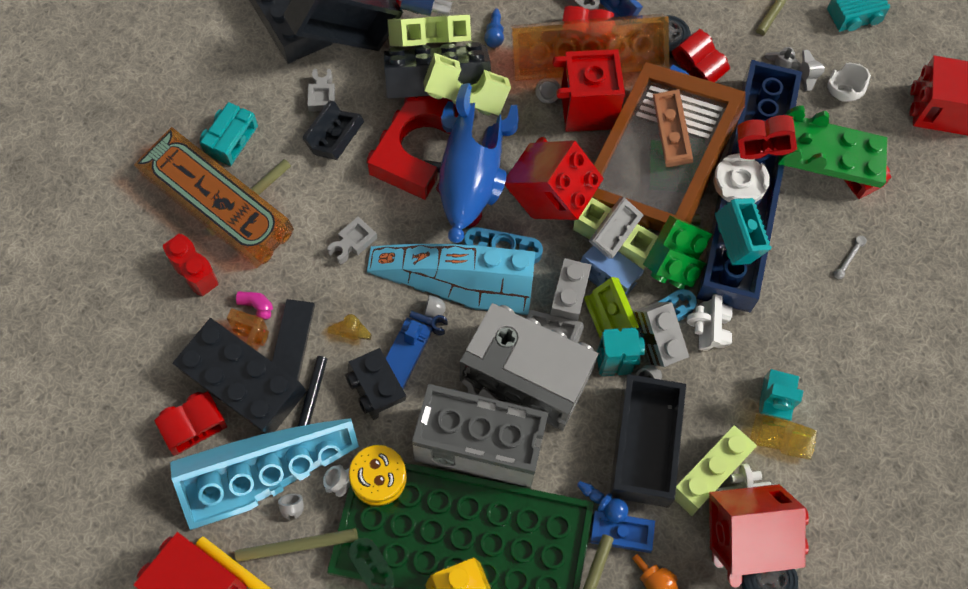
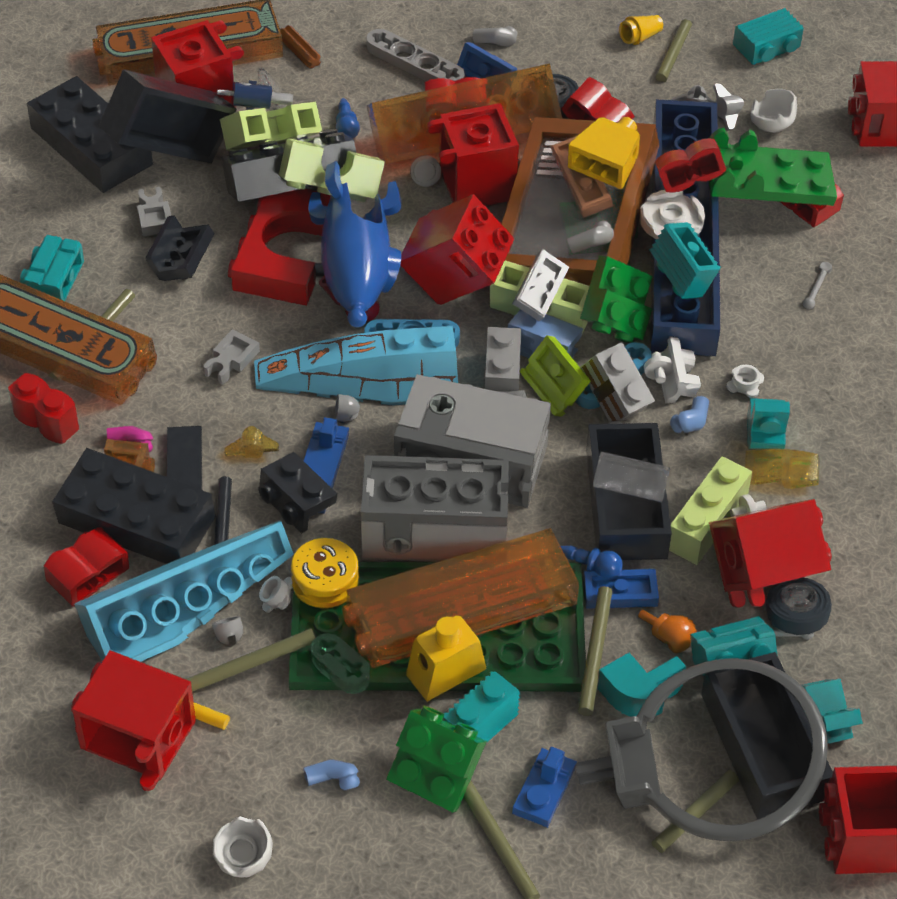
camera: 10 degrees left, 15 degrees down
(431, 321) = (354, 421): dark blue hand -> none
(484, 524) = (482, 586): none -> clear orange brick
(619, 351) = (573, 408): teal brick -> none
(652, 437) = (631, 477): none -> clear slope
(676, 190) = (599, 235): none -> light grey arm
(698, 113) = (606, 151): none -> yellow torso
(717, 373) = (691, 419): none -> medium blue arm
(777, 342) = (749, 374): none -> white plate

